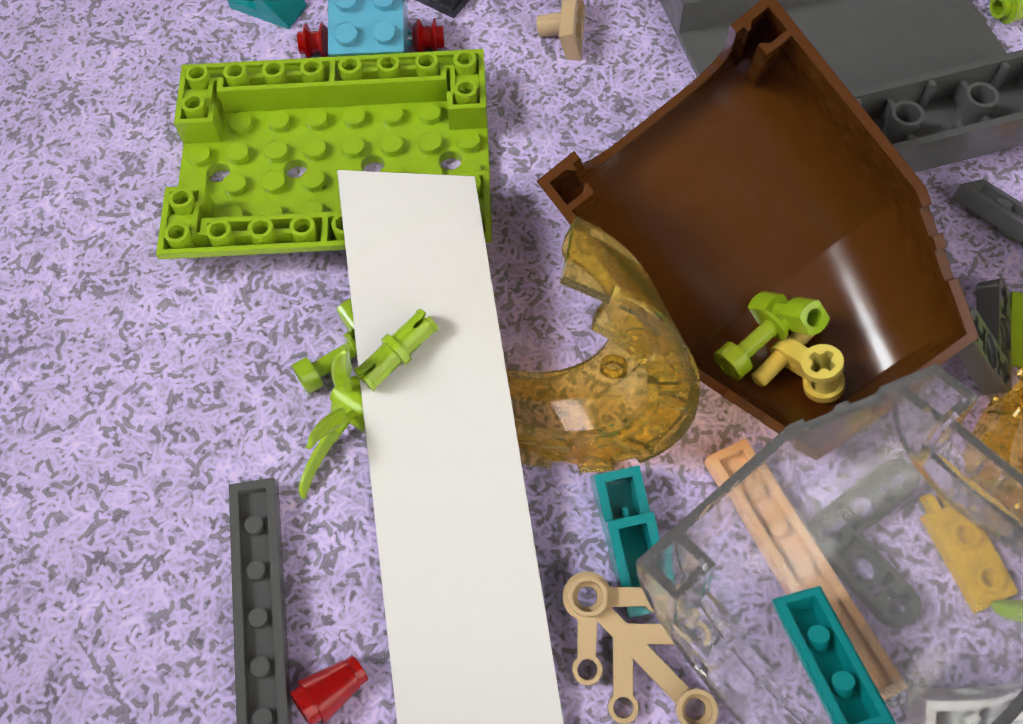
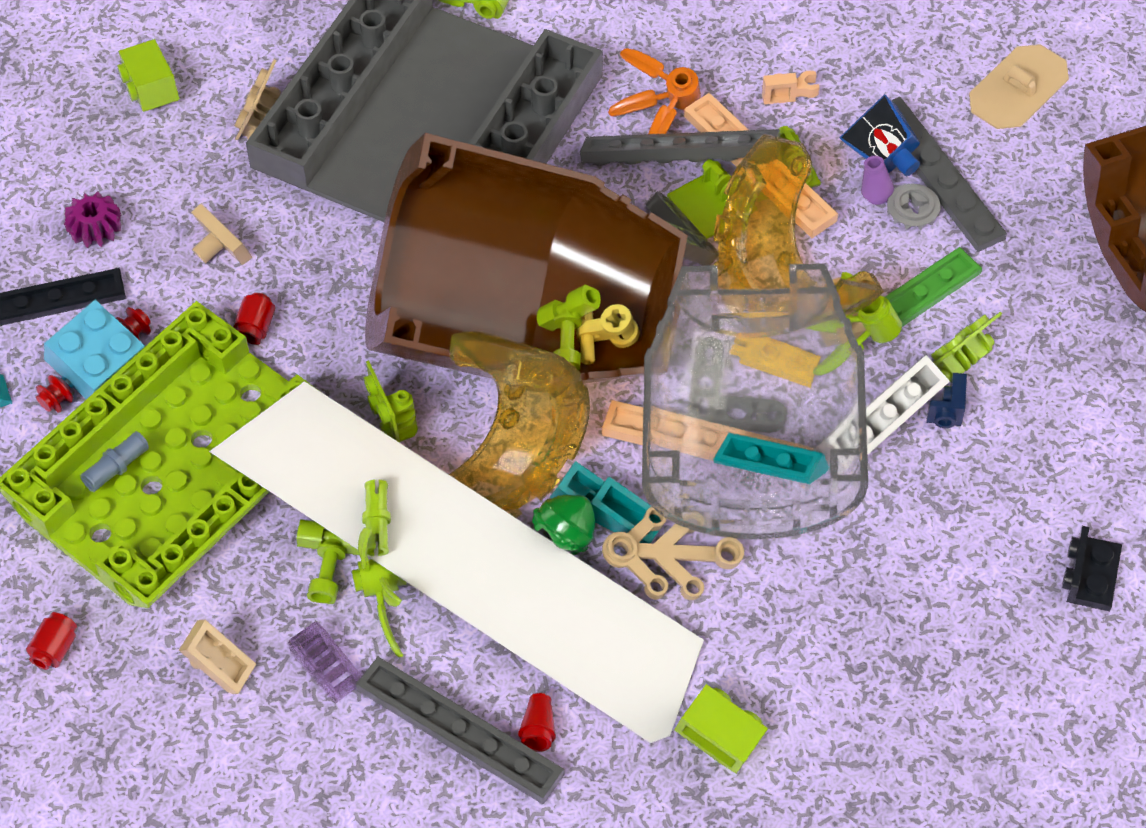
camera: 50 degrees left, 5 degrees down
(82, 223) = (51, 641): none -> red brick
(156, 350) = (217, 657): none -> tan tile
(227, 419) = (309, 637): none -> clear purple slope
(280, 123) = (114, 461): none -> sand blue pin
(521, 104) = (254, 317): none -> red brick
(529, 266) = (395, 410): none -> lime hinge
(562, 518) = (568, 521): none -> green hair

